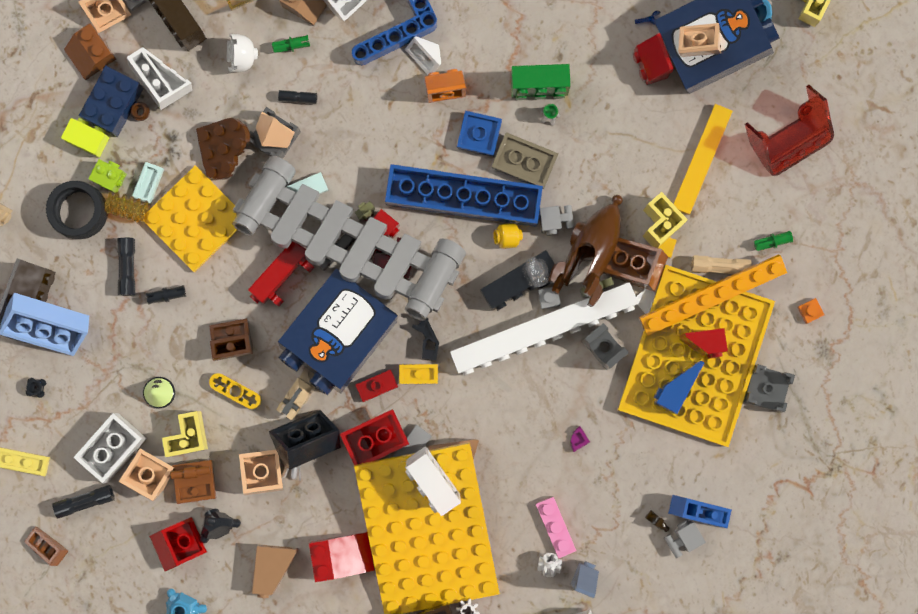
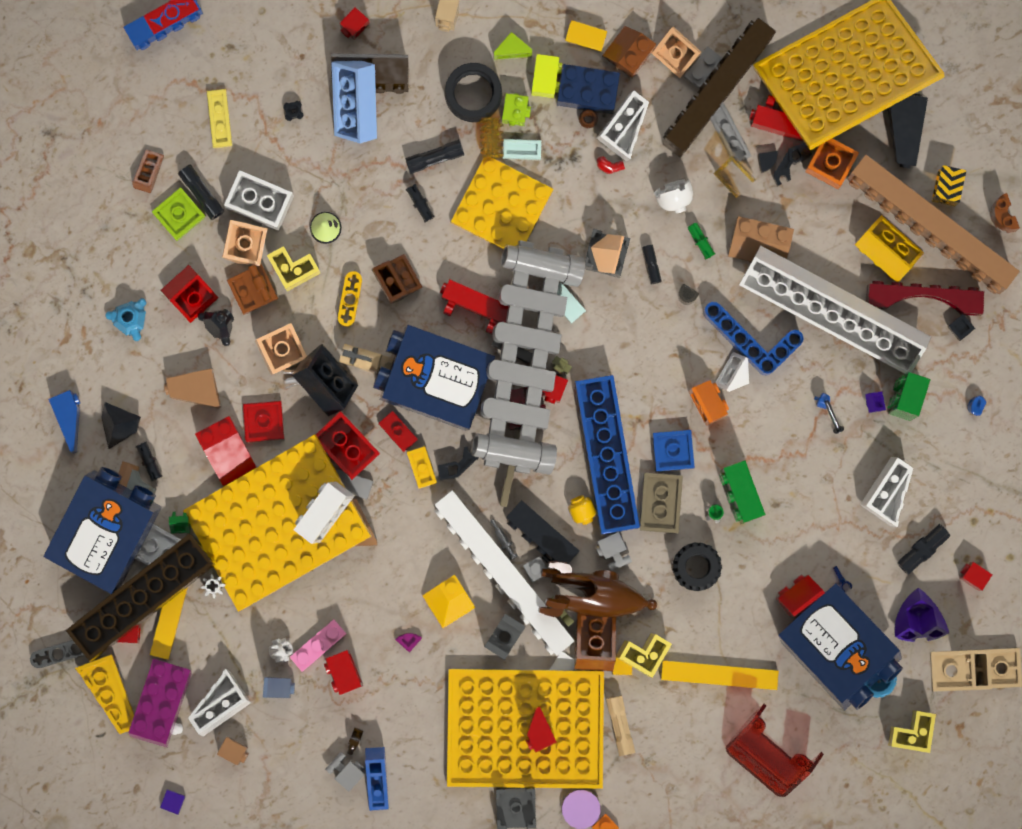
camera: 65 degrees right, 0 degrees up
(48, 159) = (512, 48): none -> lime slope
(60, 87) = (586, 35): none -> yellow slope
(97, 530) = (178, 214): none -> lime tile
(192, 107) = (608, 167): none -> red arm
(221, 145) = (578, 208): reddish brown plate -> none
(325, 511) = (263, 421): none -> red tile
(337, 73) = (687, 295): none -> clear smoke brick
(458, 296) = (508, 480): none -> dark tan tile
(513, 318) = (504, 541): none -> flat silver piece
(536, 272) = (554, 547): clear head -> none
(553, 389) = (448, 601): none -> yellow slope
(590, 511) = (343, 672): none -> red brick
(595, 130) = (685, 579): none -> black tyre
(675, 392) = (484, 718): blue slope -> none
(699, 40) = (828, 631): light nougat slope -> none
(713, 295) = (588, 725): light orange plate -> none
(773, 241) = (661, 769): green axle -> none
(787, 328) = (581, 809): none -> lavender tile

